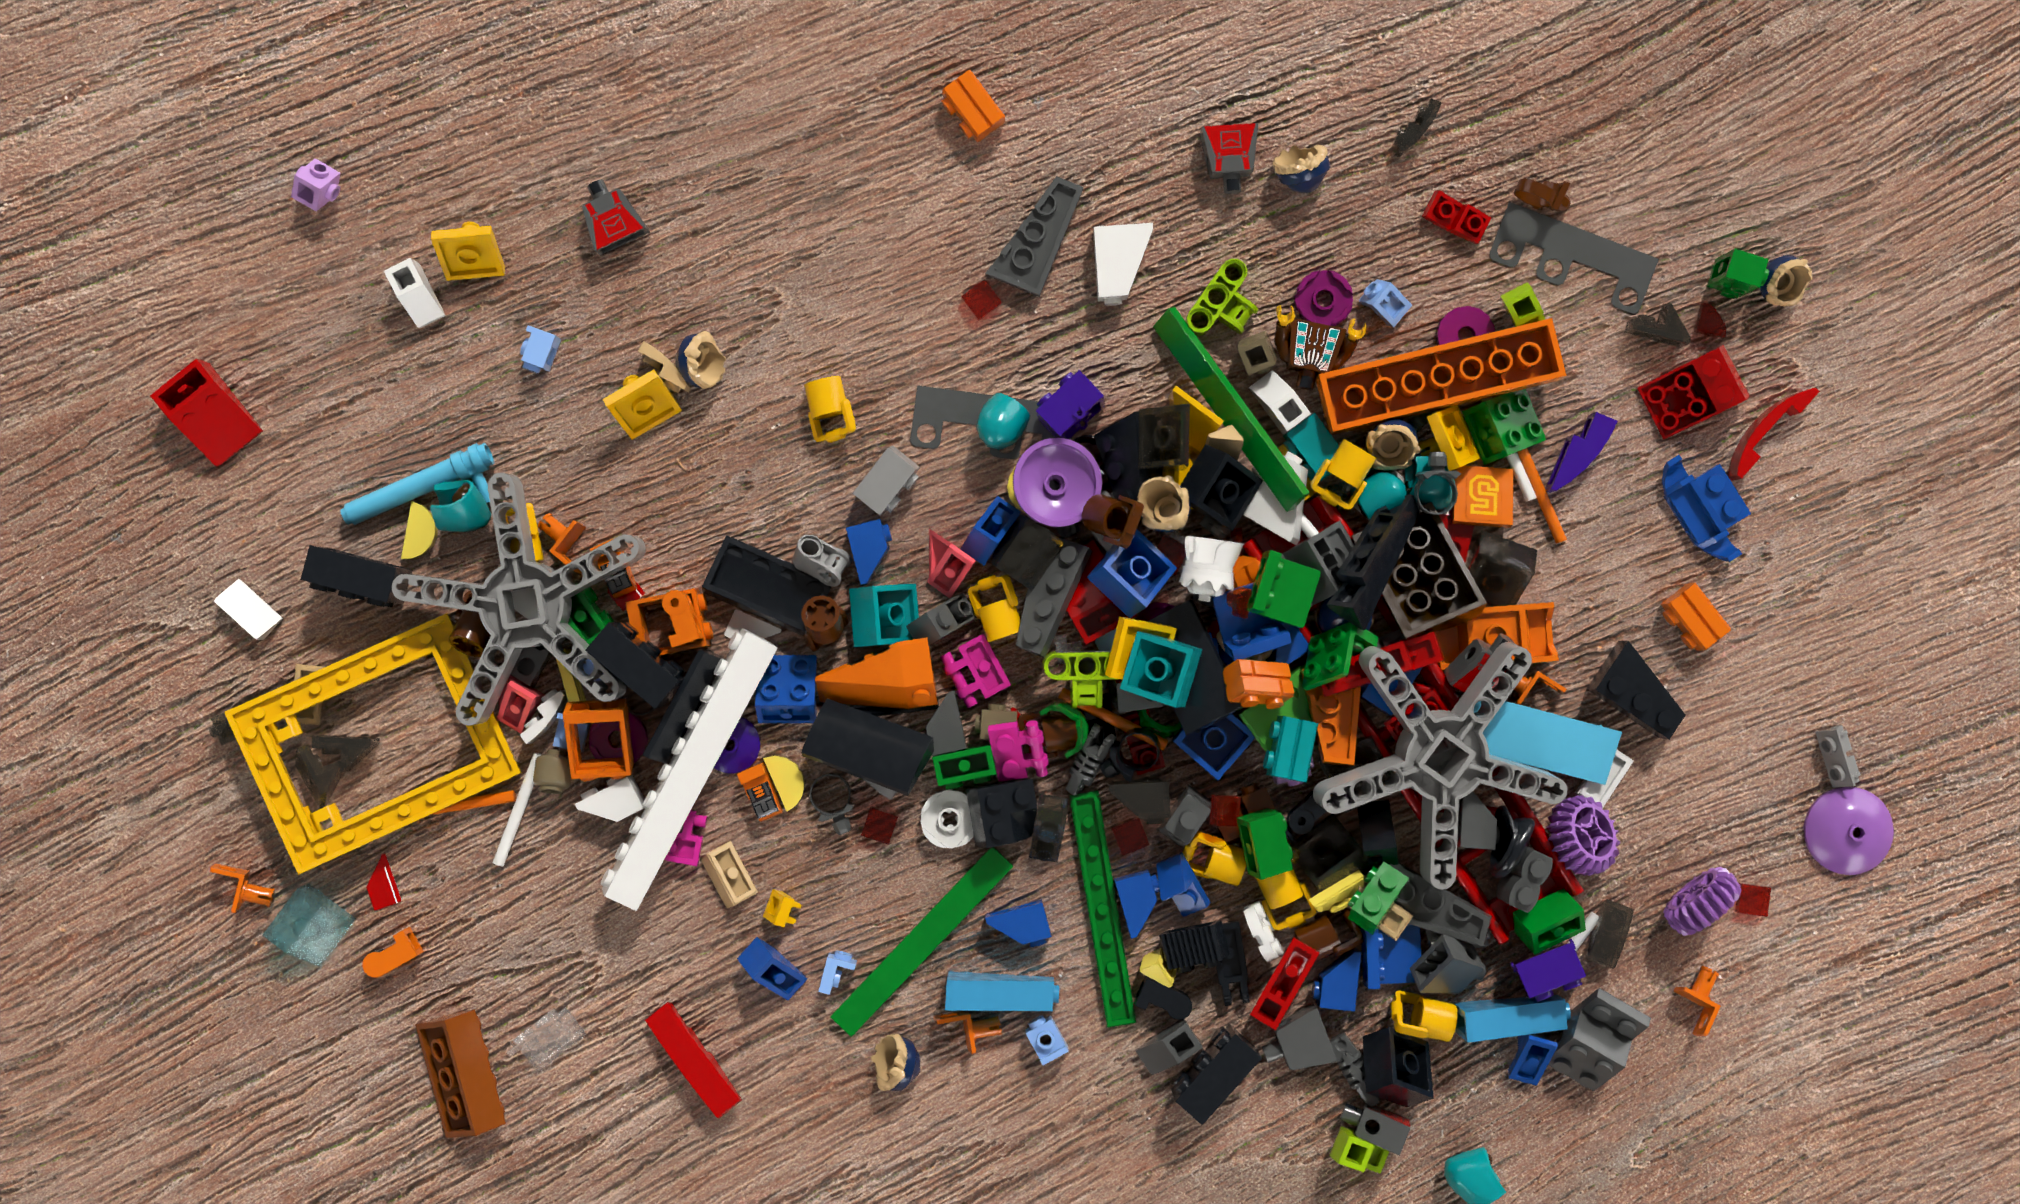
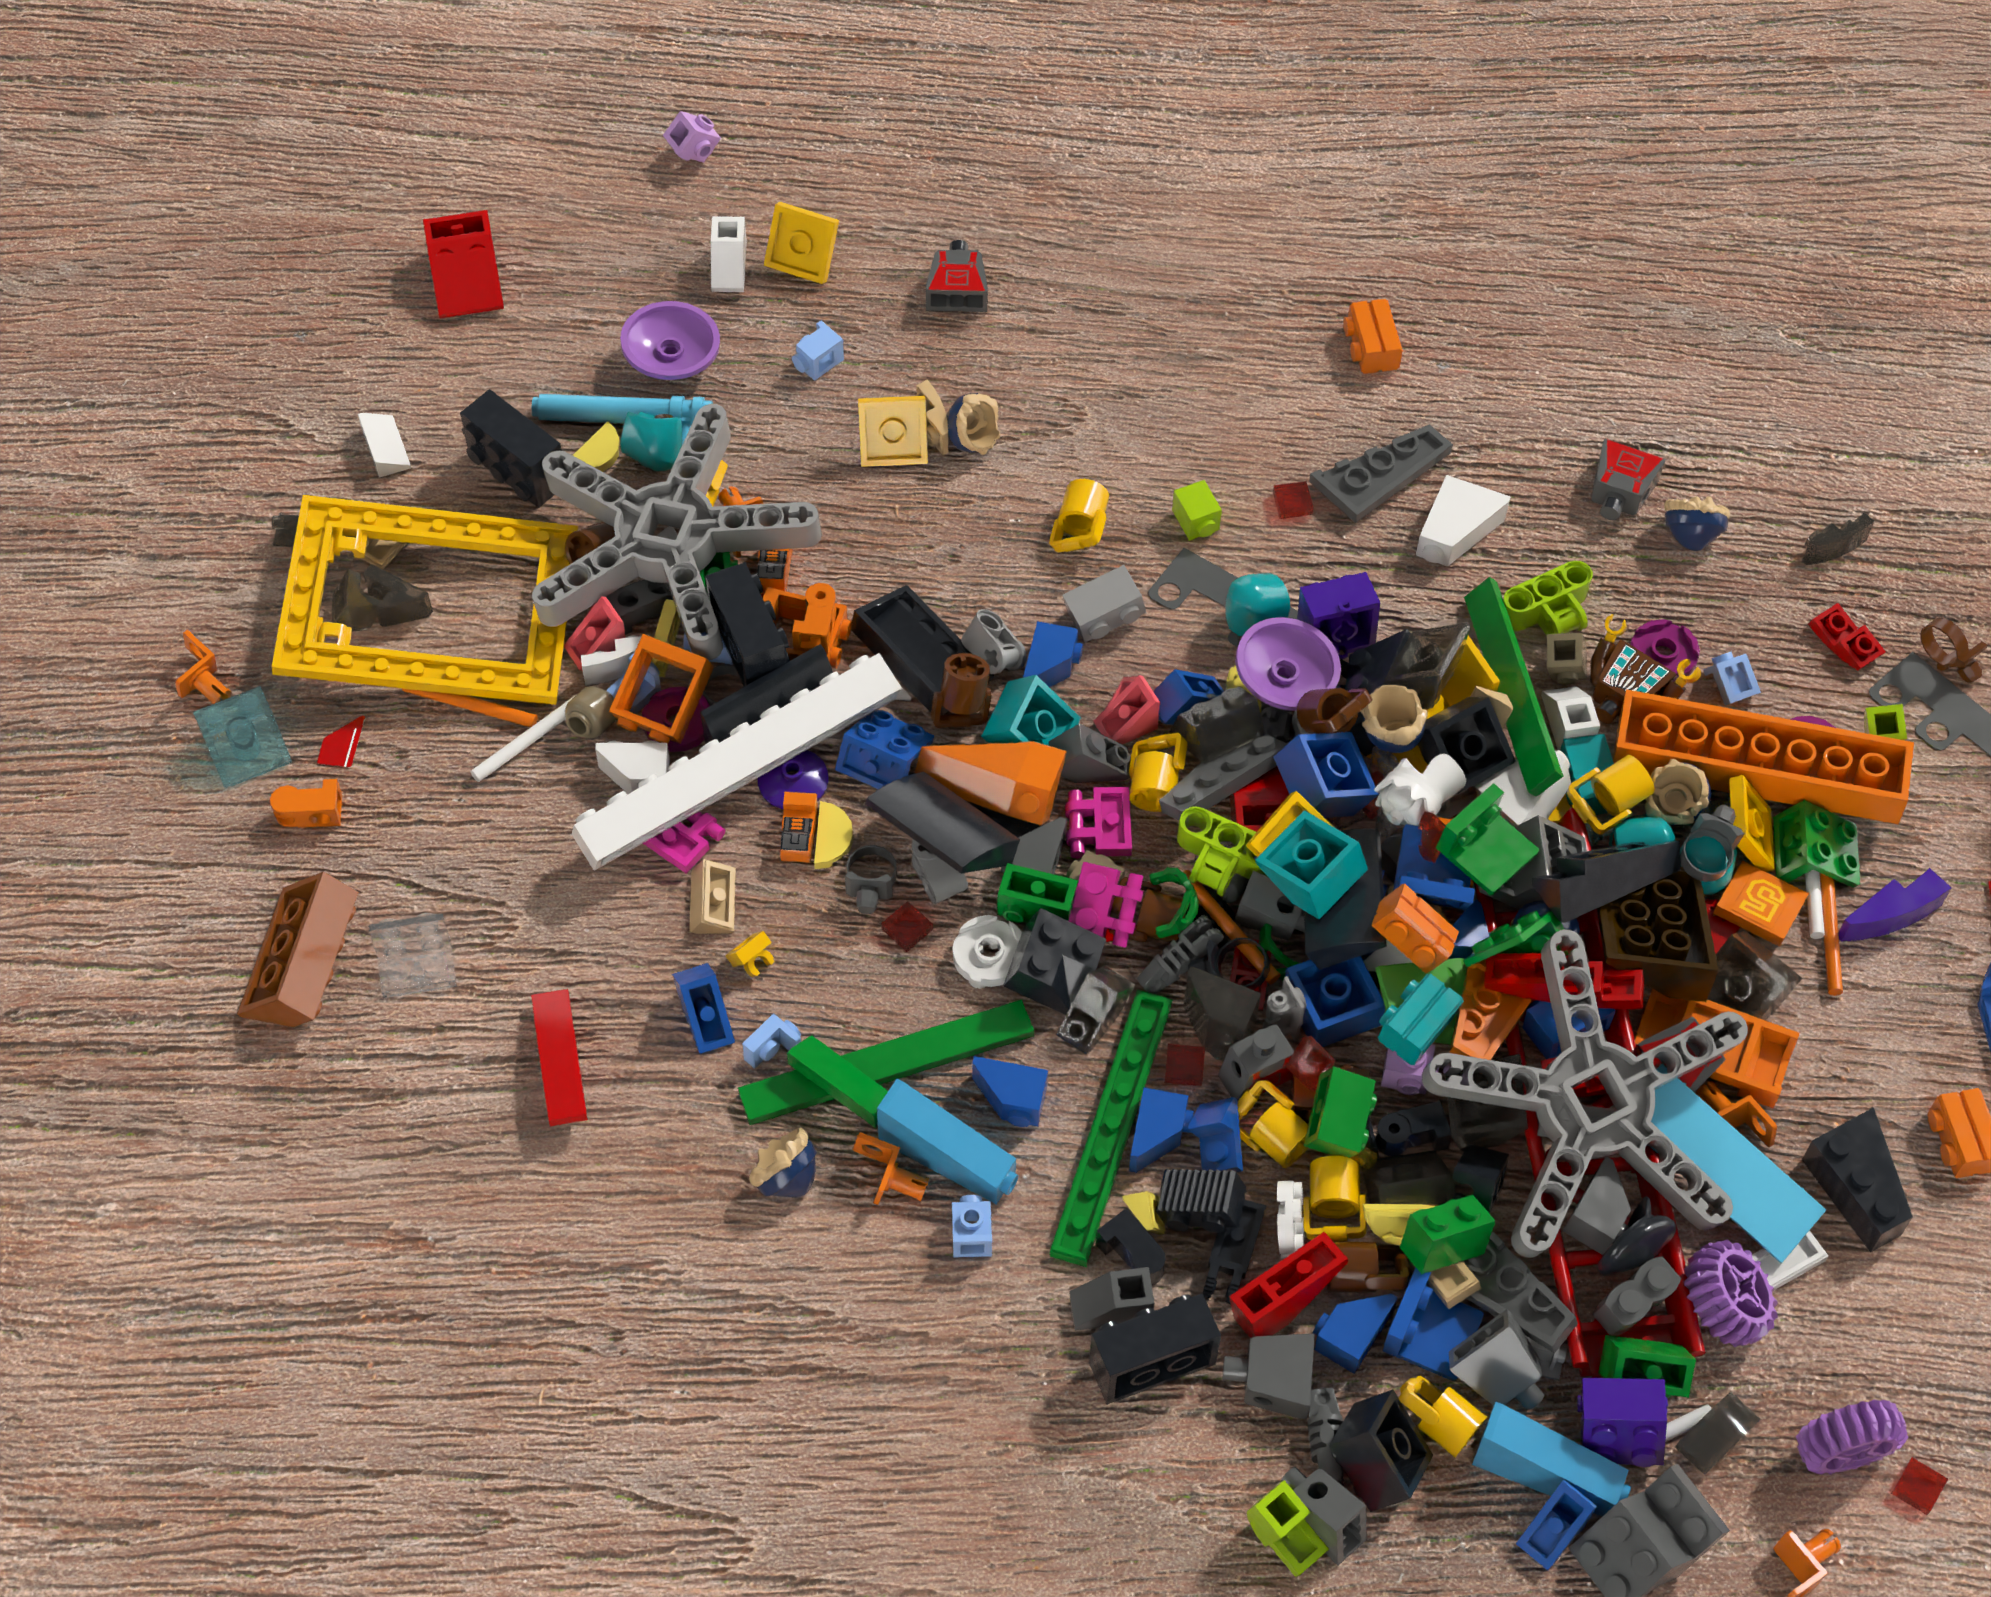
camera: 25 degrees right, 30 degrees down
(402, 394) = (670, 340): none -> medium lavender dish
(900, 978) = (837, 1078): none -> green slope
(914, 353) = (1196, 510): none -> lime brick
(1185, 771) = (1286, 1009): none -> light grey hinge

